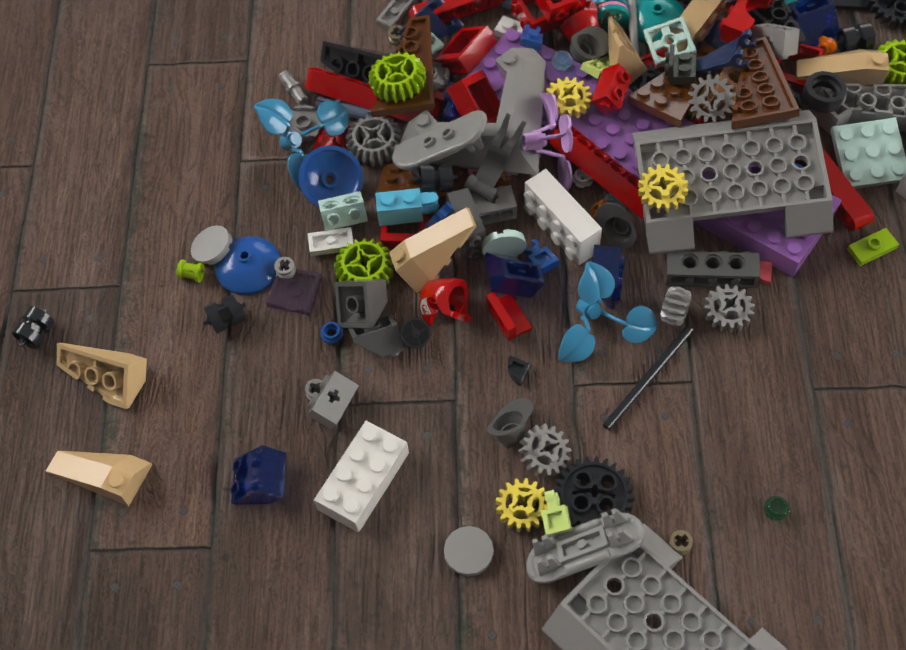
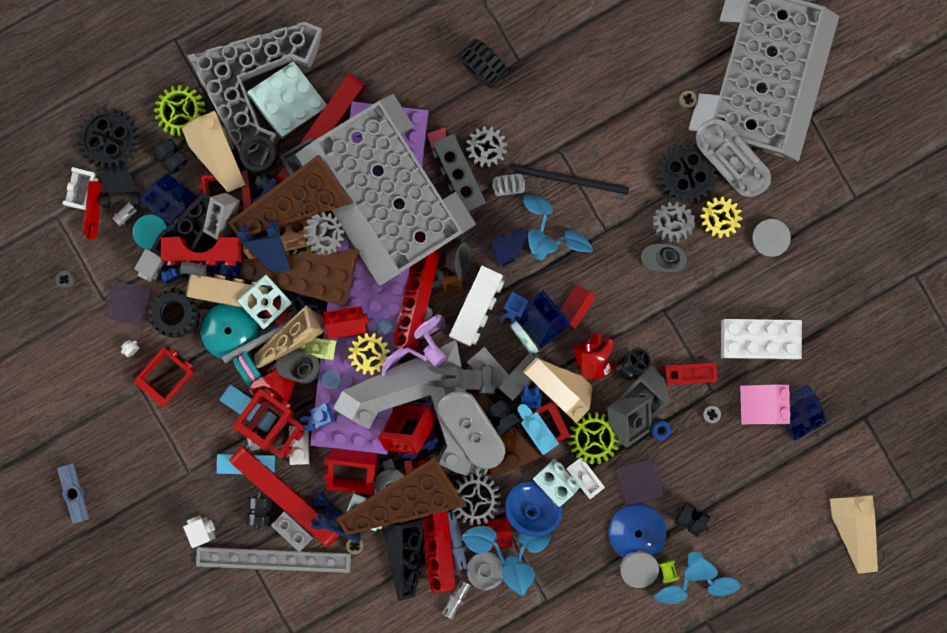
camera: 120 degrees left, 25 degrees up
(110, 373) = (781, 570): tan wedge -> none
(176, 293) = (700, 570): none -> dark azure plant
(285, 261) = (626, 491): light grey bush -> none
(289, 436) = (765, 404): none -> bright pink brick
(342, 391) = (709, 389): light grey brick -> none
(371, 388) = (691, 373): none -> red plate
(397, 77) = (417, 500): lime gear -> none
(518, 369) = (616, 276): black tile -> none
(556, 517) = (722, 187): yellowish green plate -> none
(588, 121) = (384, 326): none -> clear light blue plate
(661, 197) = (428, 223): light yellow gear -> none
(680, 67) = (293, 276): pearl dark grey bracket -> none
(776, 508) = (628, 47): clear green plate -> none
(827, 337) = (483, 63): none -> black tyre
(829, 43) = (190, 177): orange plate -> none
(873, 246) = (372, 65): lime plate -> none

